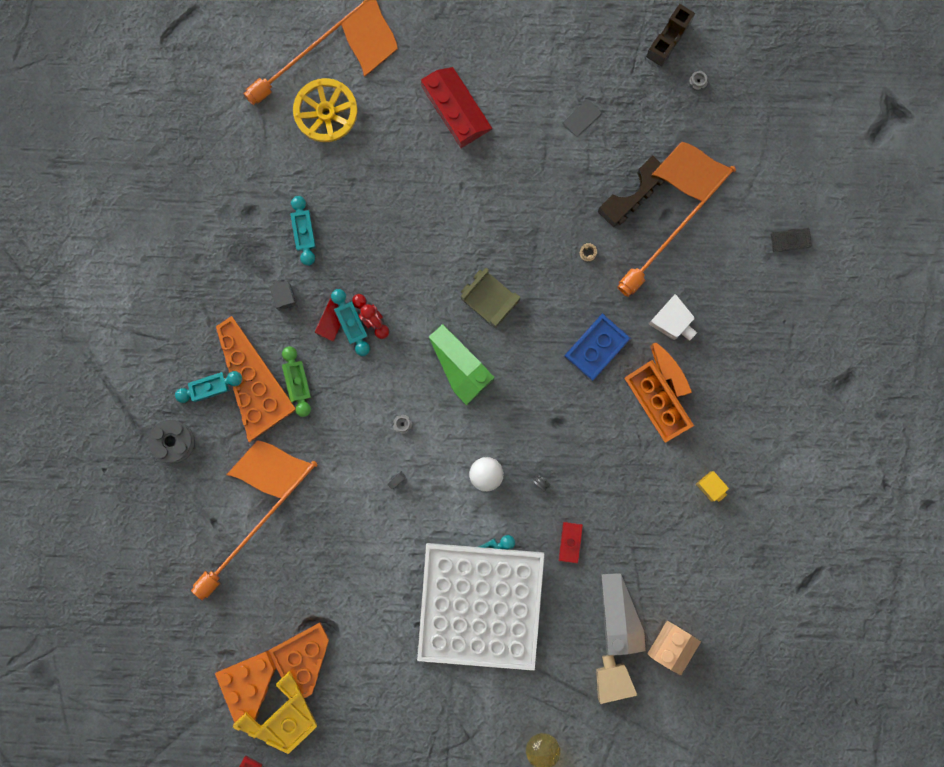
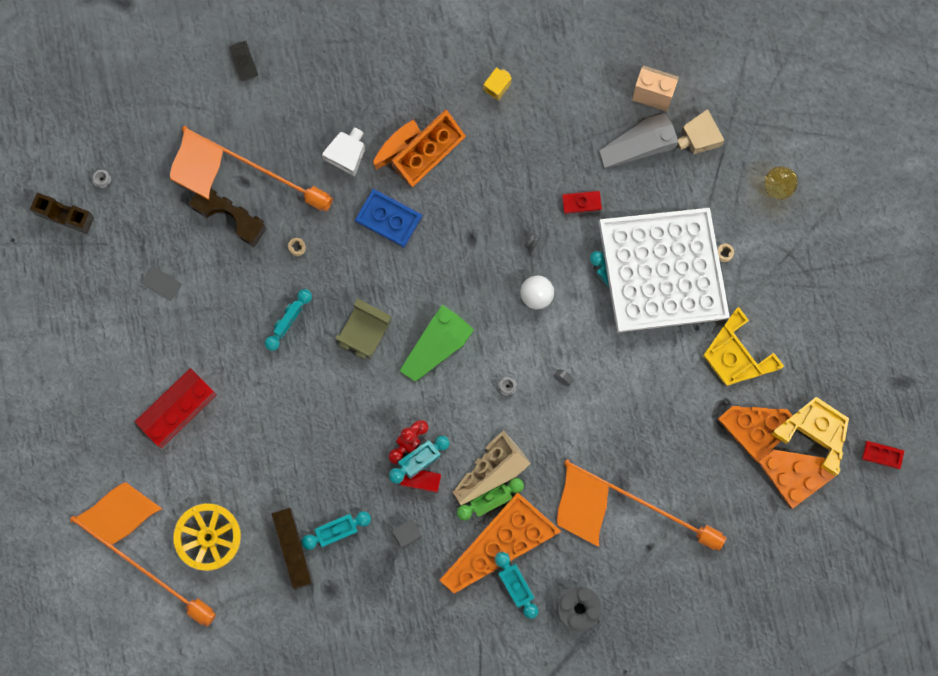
camera: 105 degrees left, 5 degrees down
(278, 186) = (292, 549): none -> dark brown arch
(326, 396) = (498, 465): none -> tan wedge
(376, 651) = (731, 358): none -> yellow wing
(481, 678) = (730, 255): none -> tan bush
(511, 221) = (291, 313): none -> teal plate

